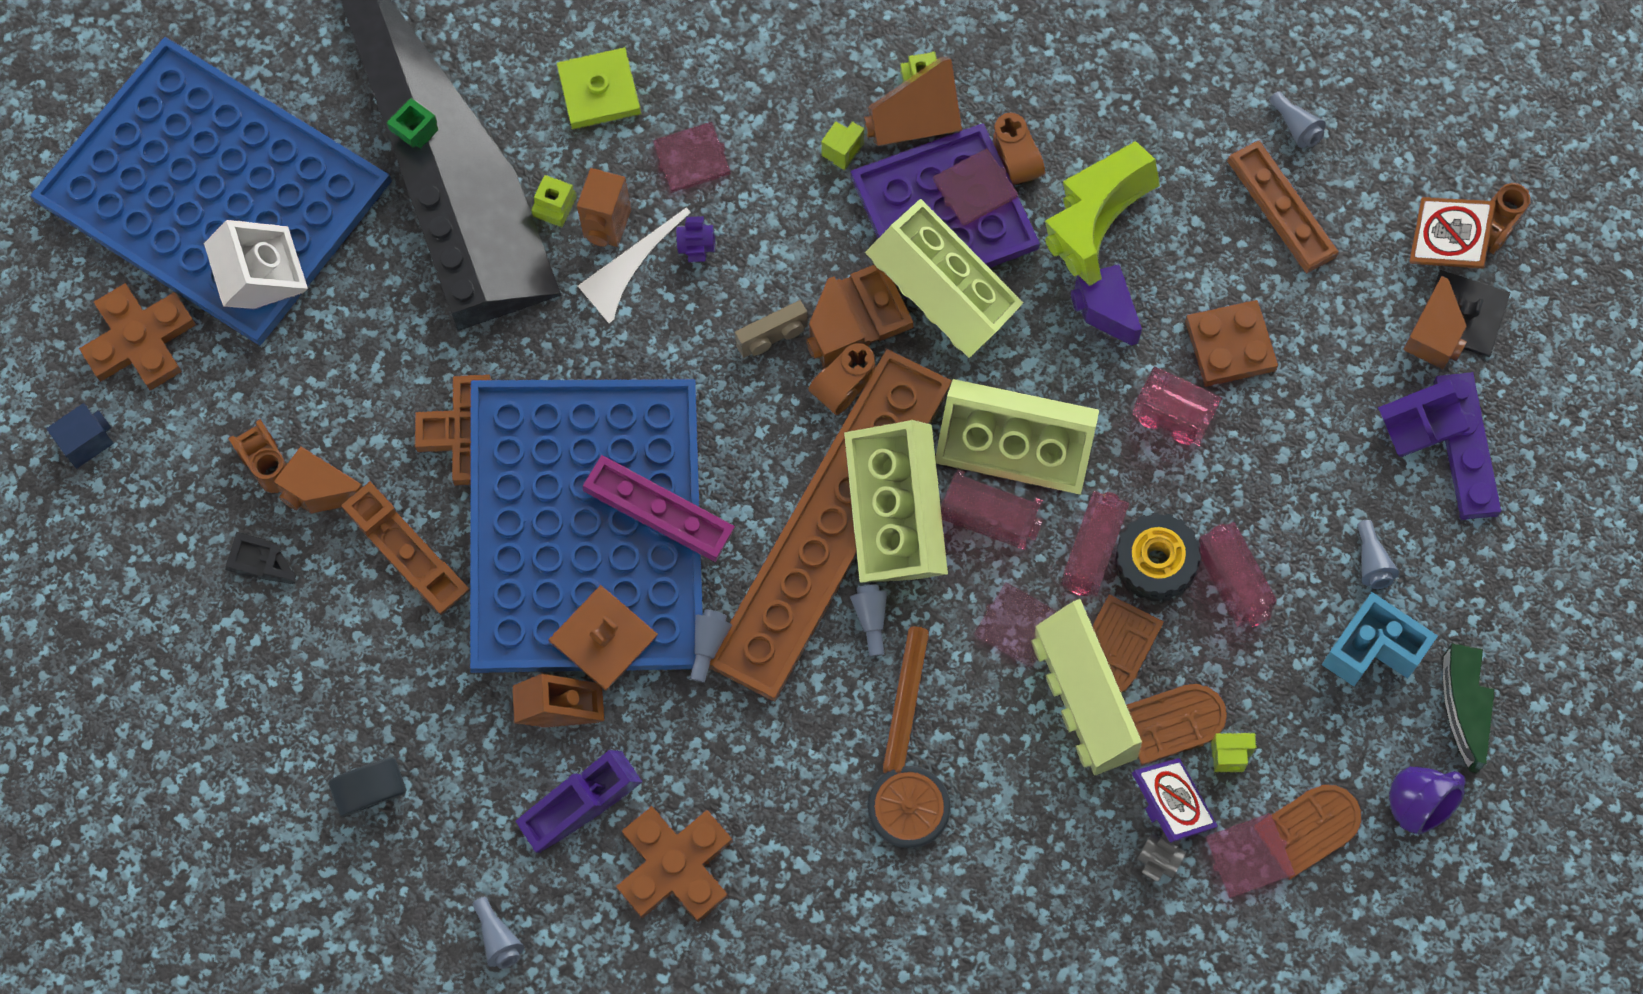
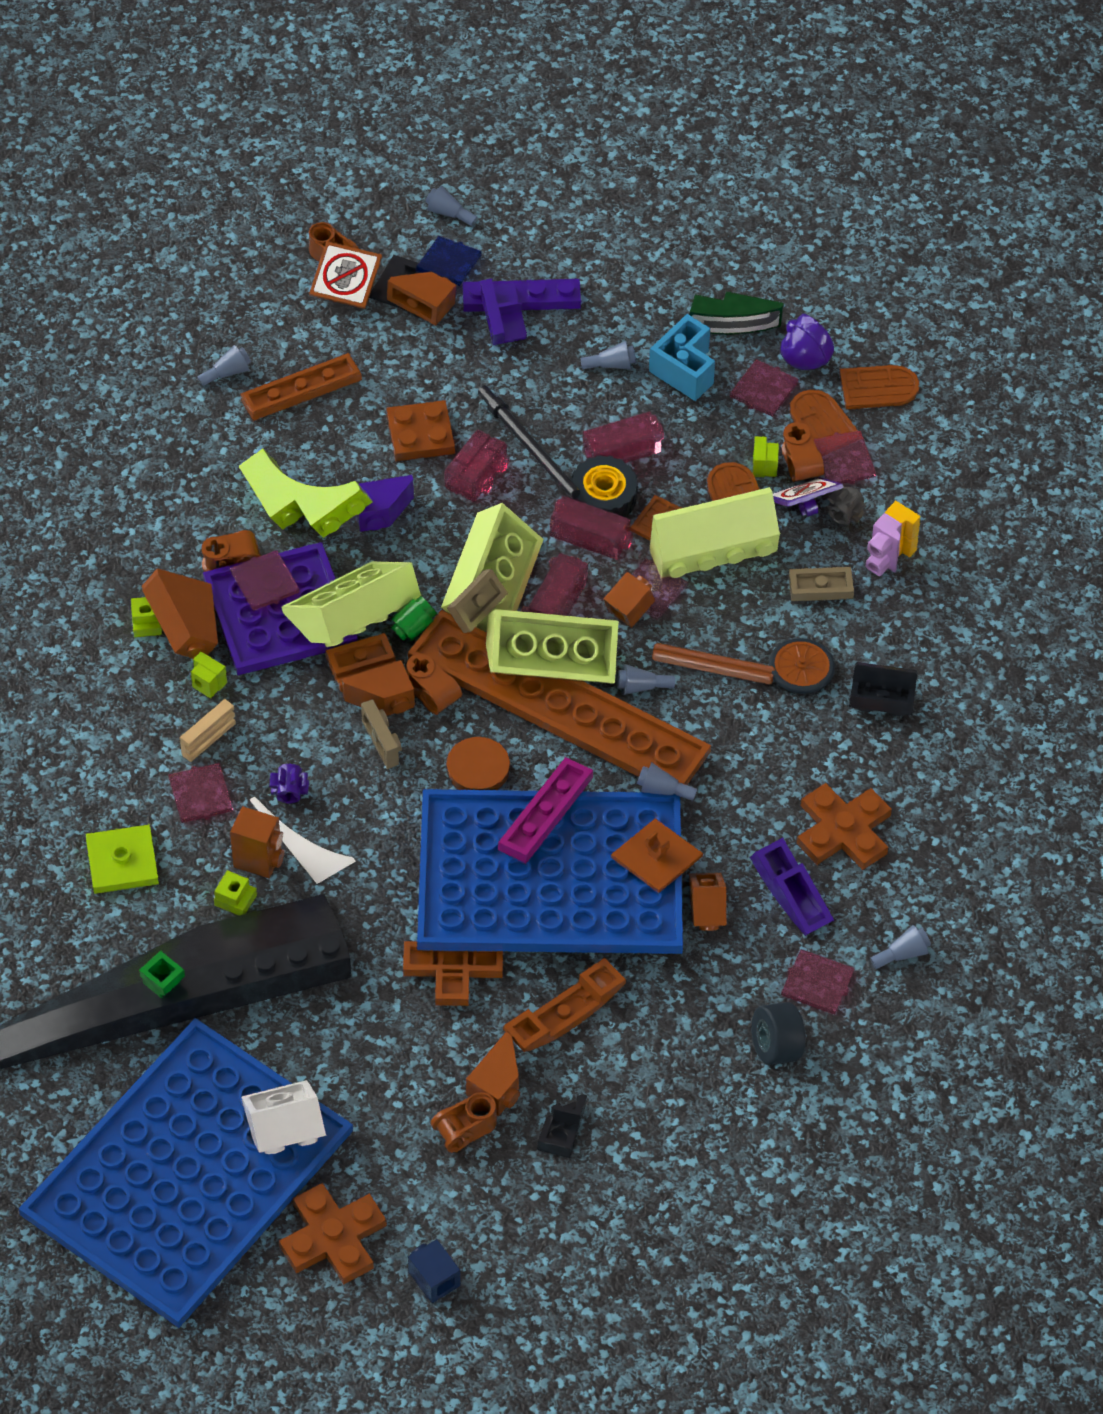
camera: 90 degrees left, 15 degrees down
(455, 837) = (817, 981): none -> clear pink piece
(740, 440) = (478, 764): none -> dark orange tile
(765, 151) = (207, 730): none -> tan tile
(871, 906) = (883, 689): none -> black bracket
(935, 350) = (413, 619): none -> green brick
(940, 406) = (477, 600): none -> dark tan plate
(985, 593) = (629, 599): none -> dark orange brick
(1037, 827) = (821, 584): none -> dark tan plate
(1103, 907) = (892, 535): none -> lavender hips
(1236, 799) = (801, 453): none -> dark orange piece
(1272, 429) = (500, 409): none -> black bar
(1358, 752) = (764, 387): none -> clear pink piece
(1381, 900) = (878, 386): none -> dark orange window
(1509, 356) = (449, 260): none -> clear blue piece
(1600, 342) = (443, 203): none -> sand blue cone

